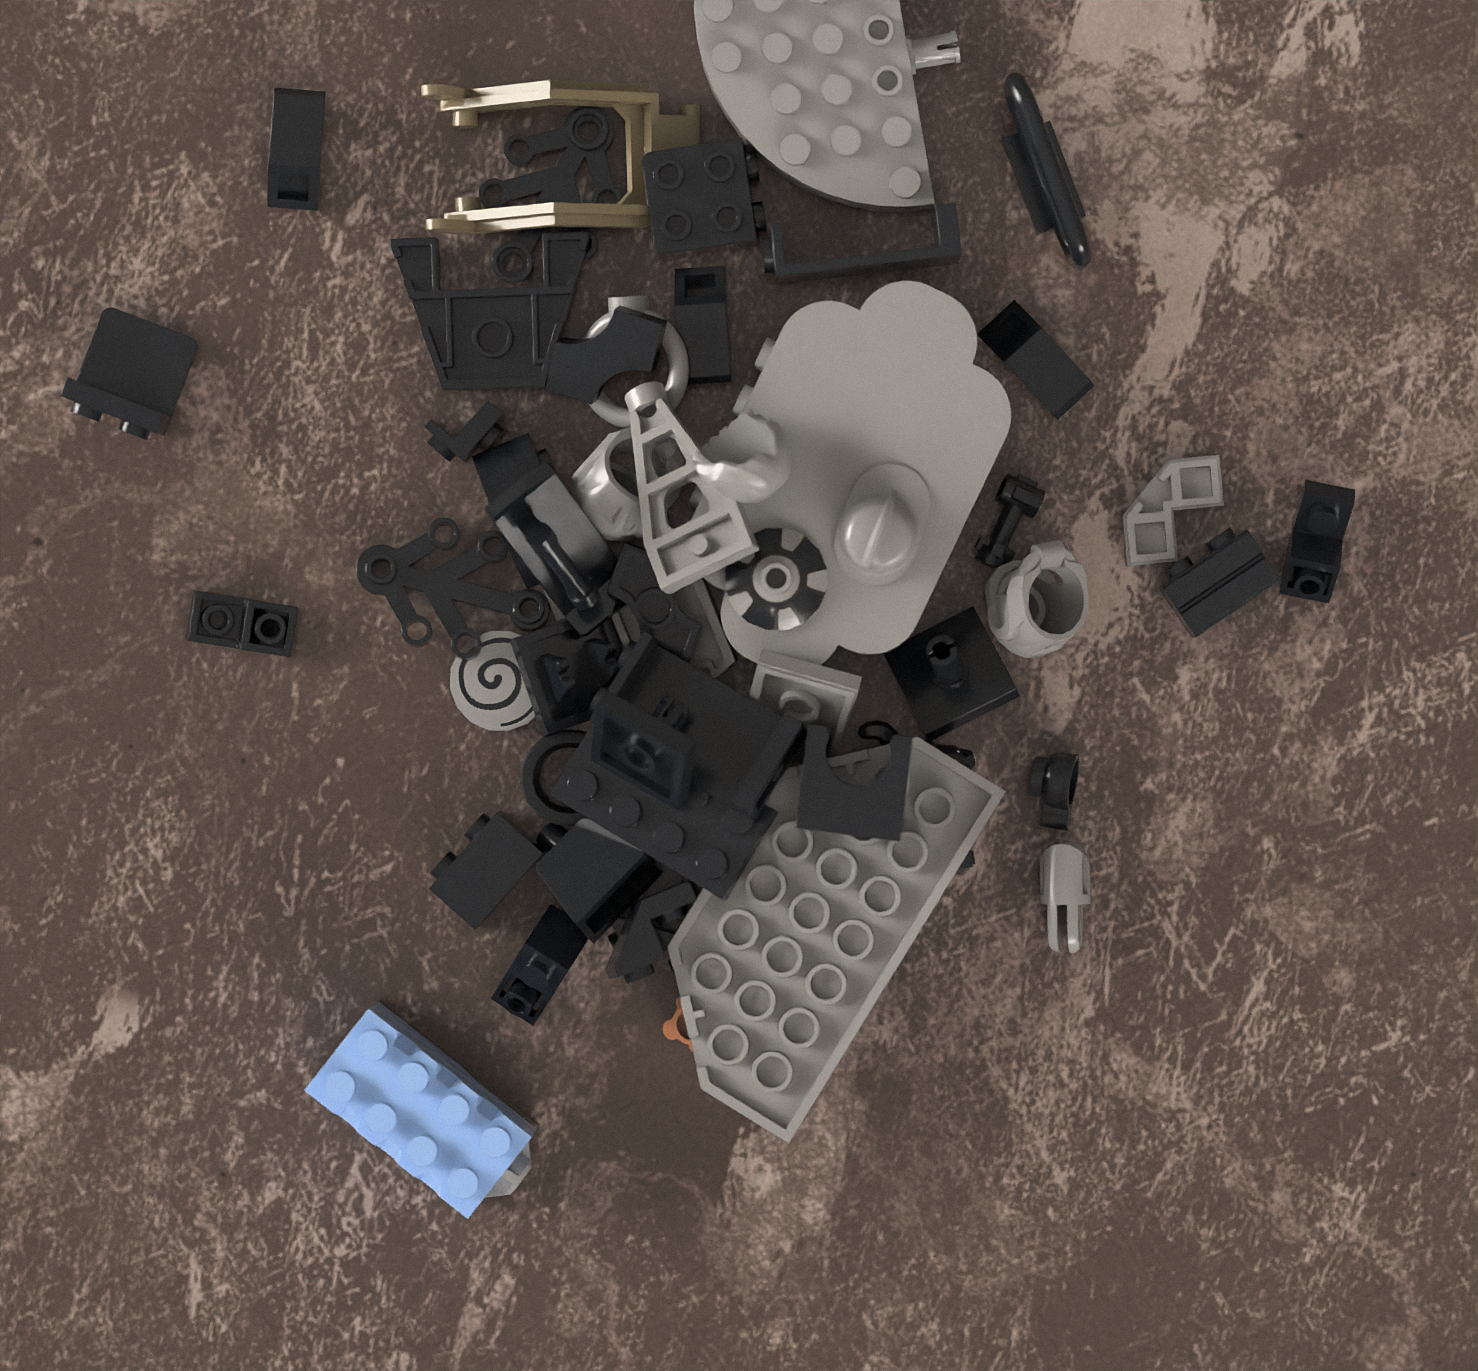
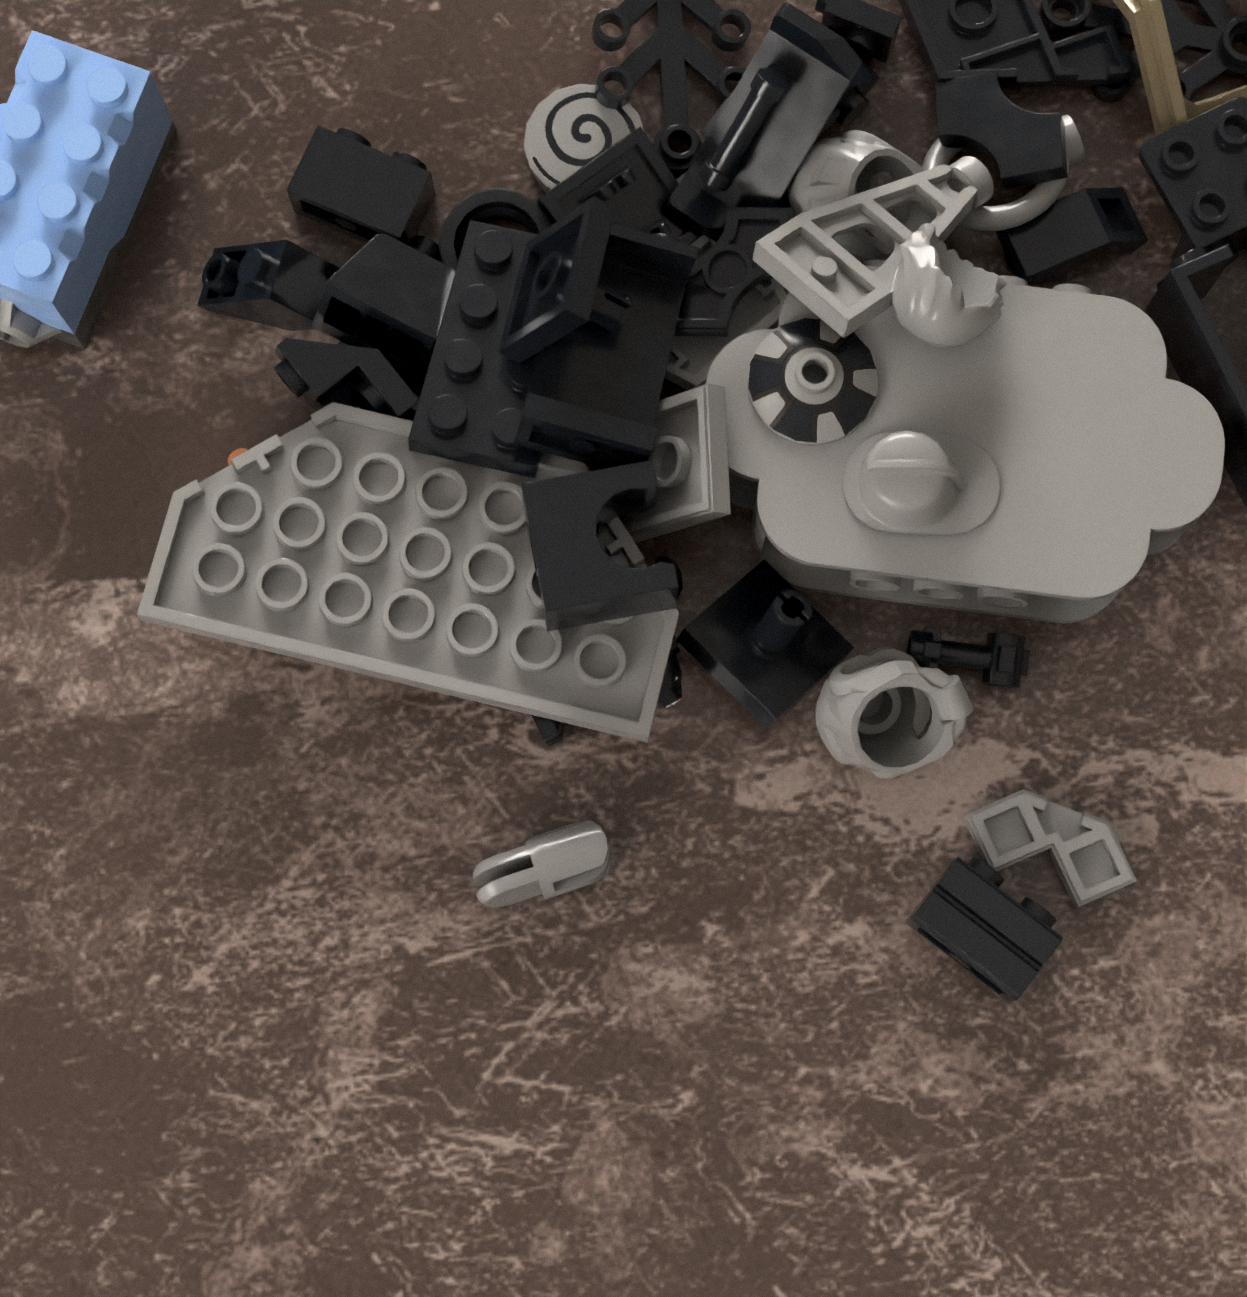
camera: 70 degrees right, 10 degrees down
(1036, 359) = (1171, 626): black slope -> none
(1056, 783) = (675, 815): black piece -> none
(1316, 541) = (1076, 1034): black slope -> none

